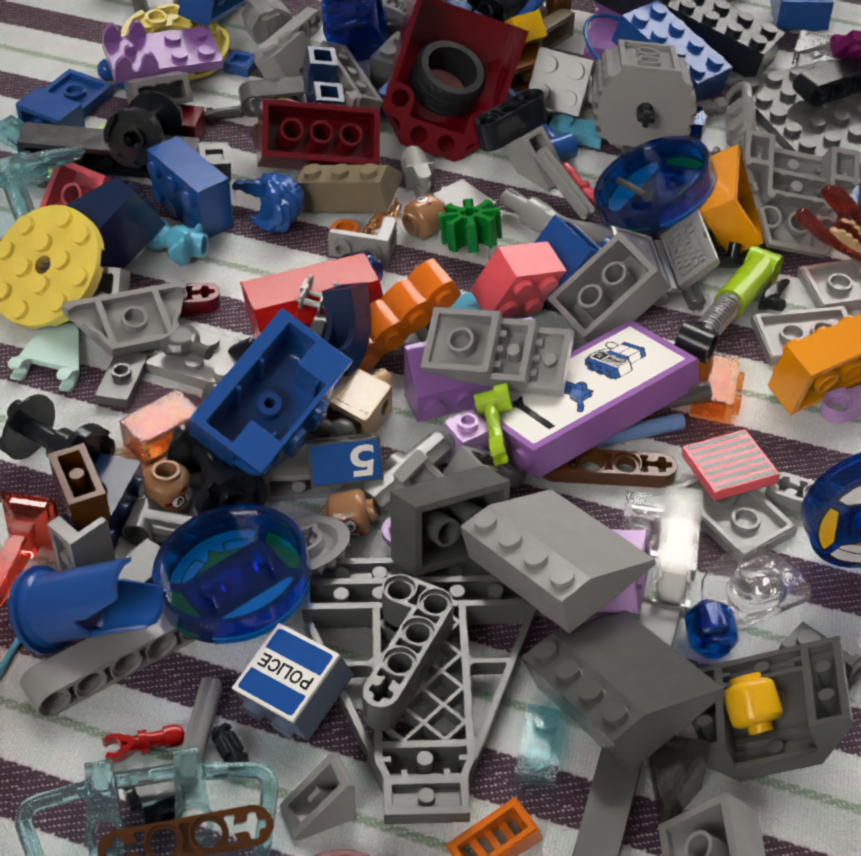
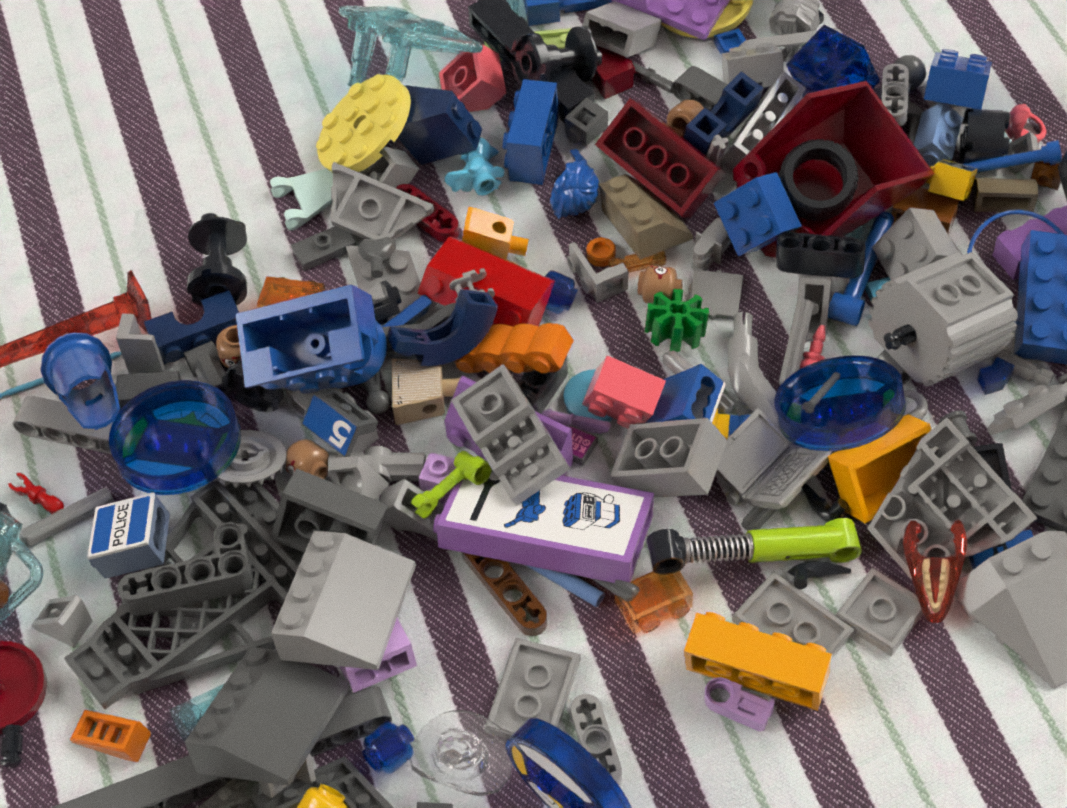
camera: 55 degrees right, 10 degrees up
(79, 486) = (169, 305): reddish brown brick -> none
(228, 744) = (68, 541): black piece -> none
(255, 262) = (492, 233): none -> light orange torso
(437, 123) = (757, 213): none -> blue brick
(673, 539) = (435, 674): clear brick -> none
(730, 465) = (568, 659): tile -> none

